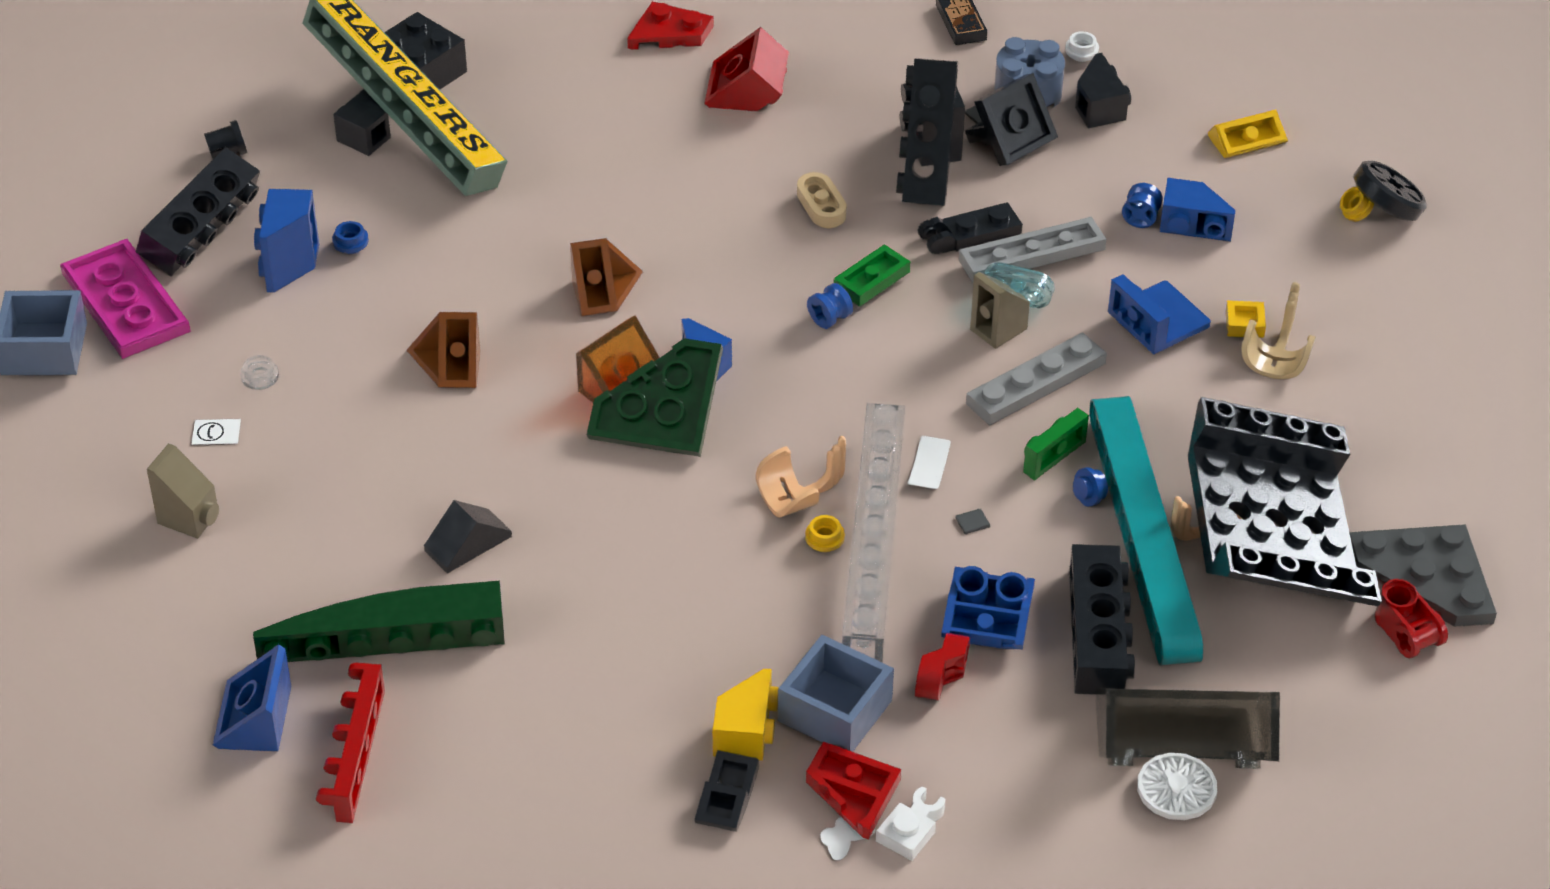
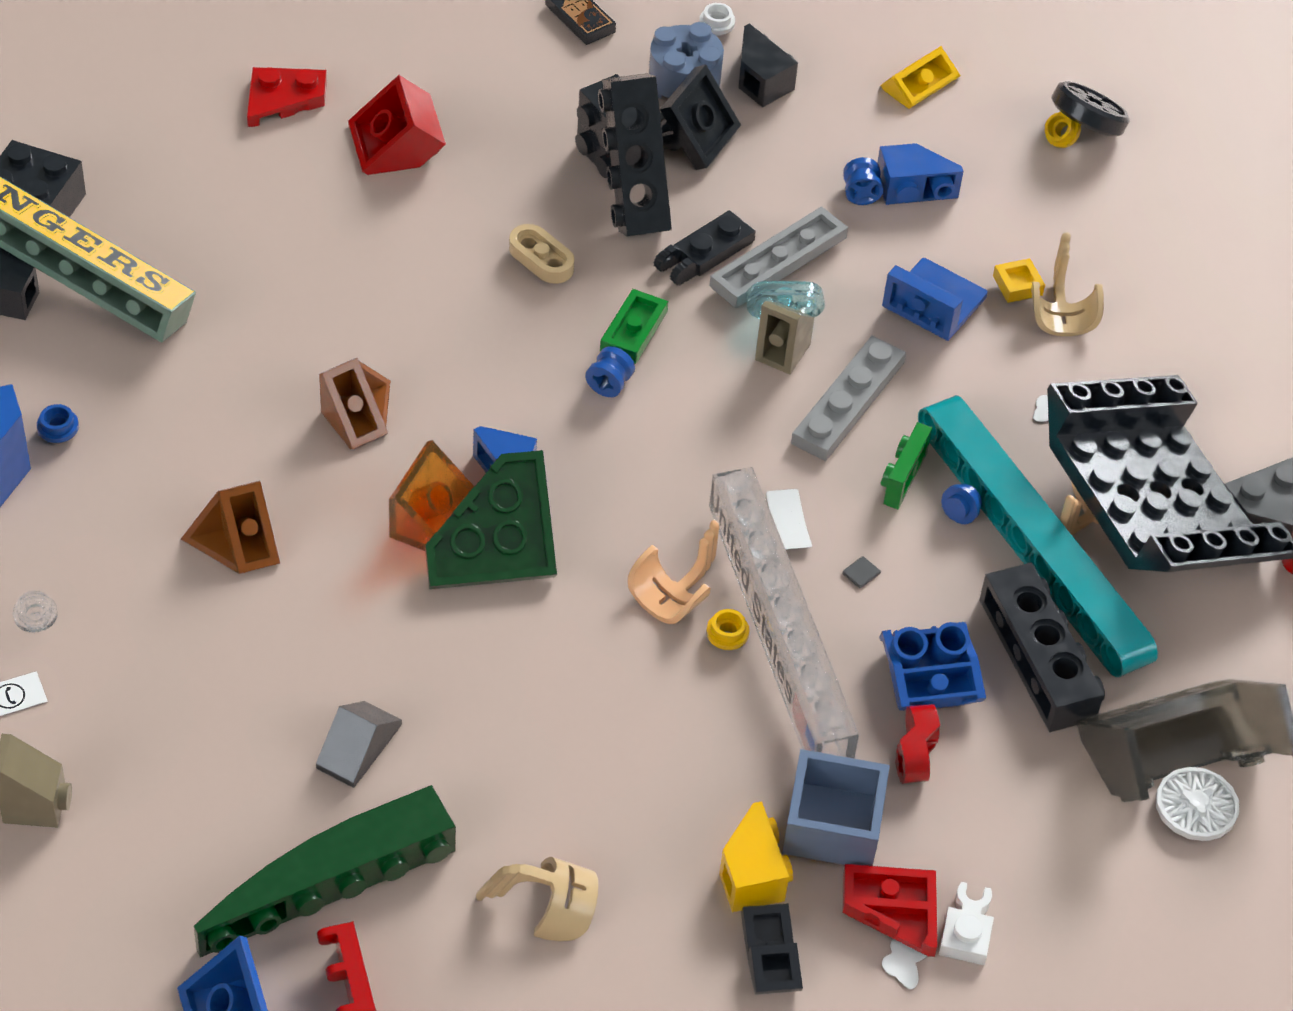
camera: 25 degrees left, 5 degrees up
(555, 718) = (557, 922): none -> tan helmet

